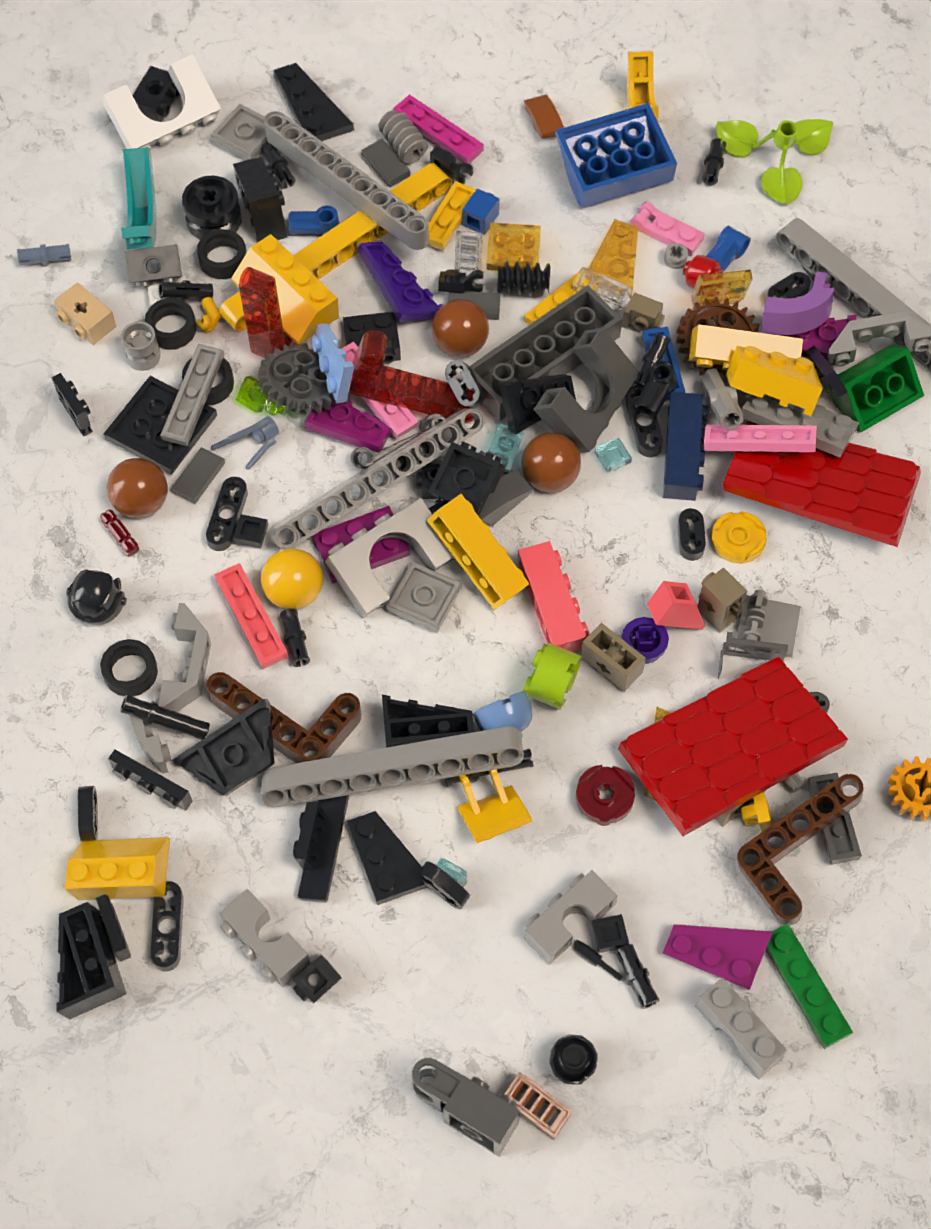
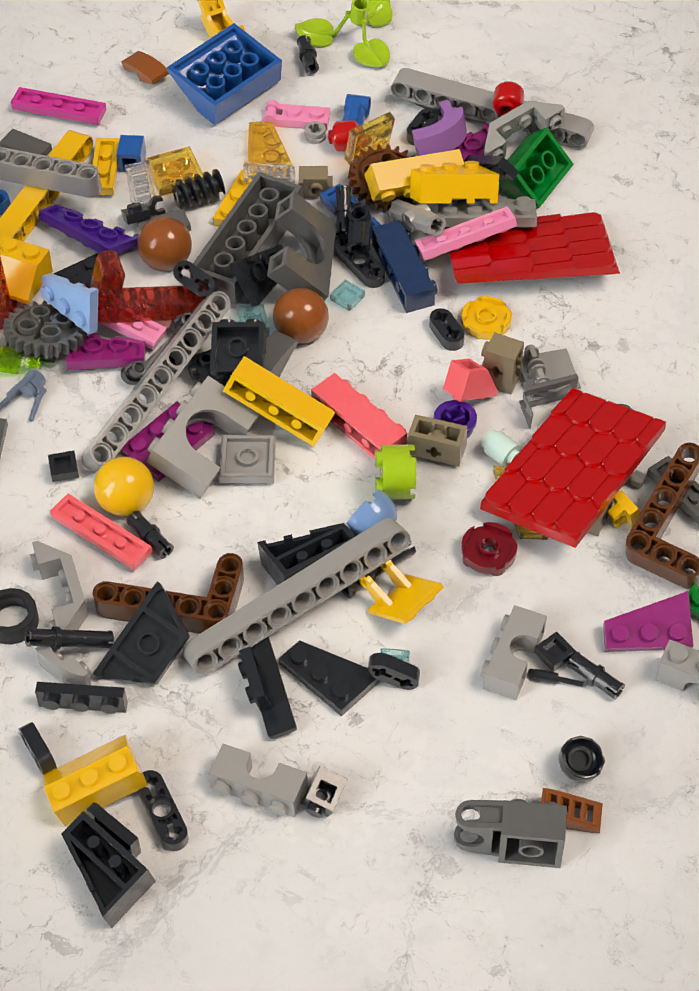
camera: 25 degrees left, 10 degrees down
(224, 502) = (28, 470): black beam -> none
(403, 136) = (31, 119): light grey piece -> none
(448, 165) = (83, 126): black plate -> none
(673, 690) = (500, 447): none -> light aqua brick
(886, 297) = (507, 97): none -> red head

